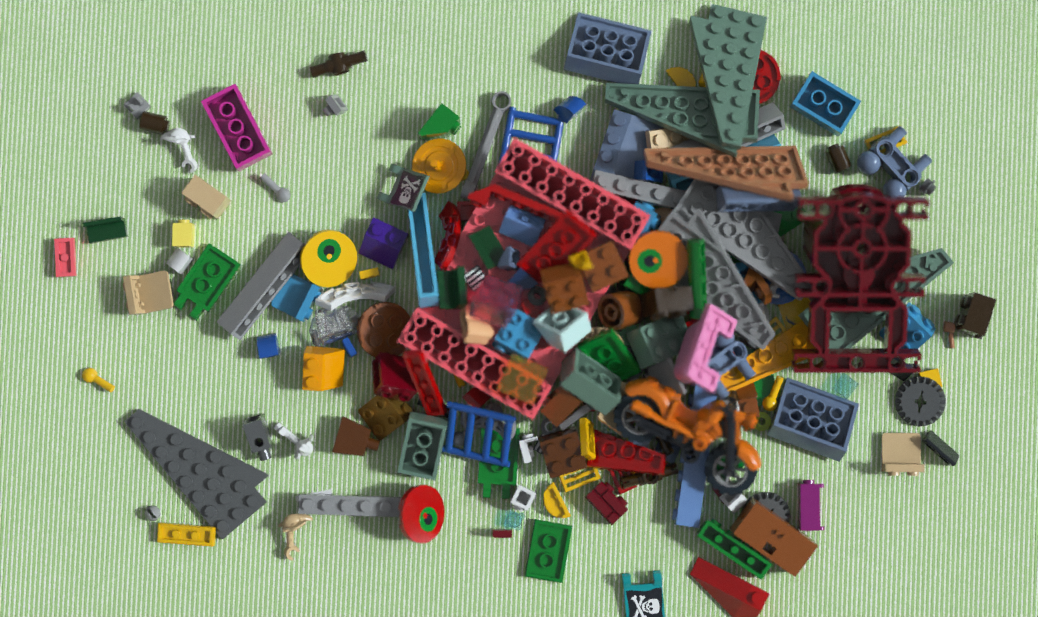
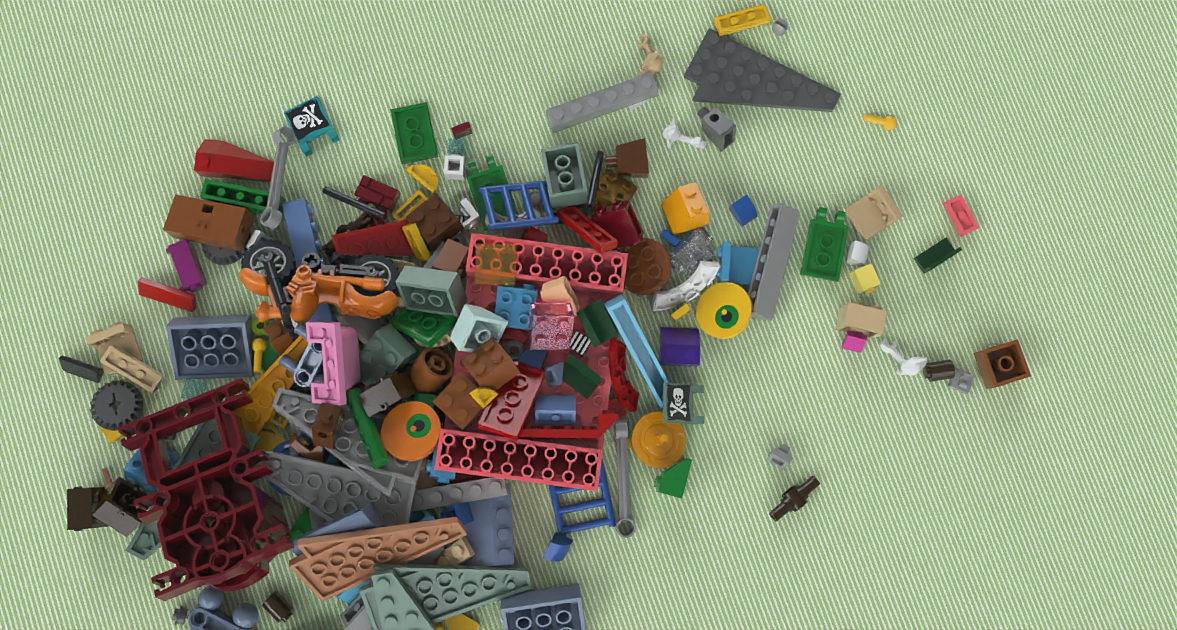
camera: 155 degrees right, 5 degrees down
(94, 104) = (1002, 364): none -> dark orange brick
(220, 181) = (854, 341): none -> dark pink tile
(237, 127) = (862, 397): dark pink brick -> none
(282, 194) = (792, 354): light grey bar -> none
(396, 430) = (595, 180): none -> black piece
(421, 513) = (541, 115): red tile -> none
(630, 501) = (355, 203): none -> black bar
(698, 542) = (271, 216): none -> light grey piece
(729, 293) = (327, 421): none -> reddish brown torso
(838, 486) = (167, 294): none -> red tile
(893, 428) = (131, 368): none -> tan plate
(942, 302) = (118, 506): none -> dark brown brick

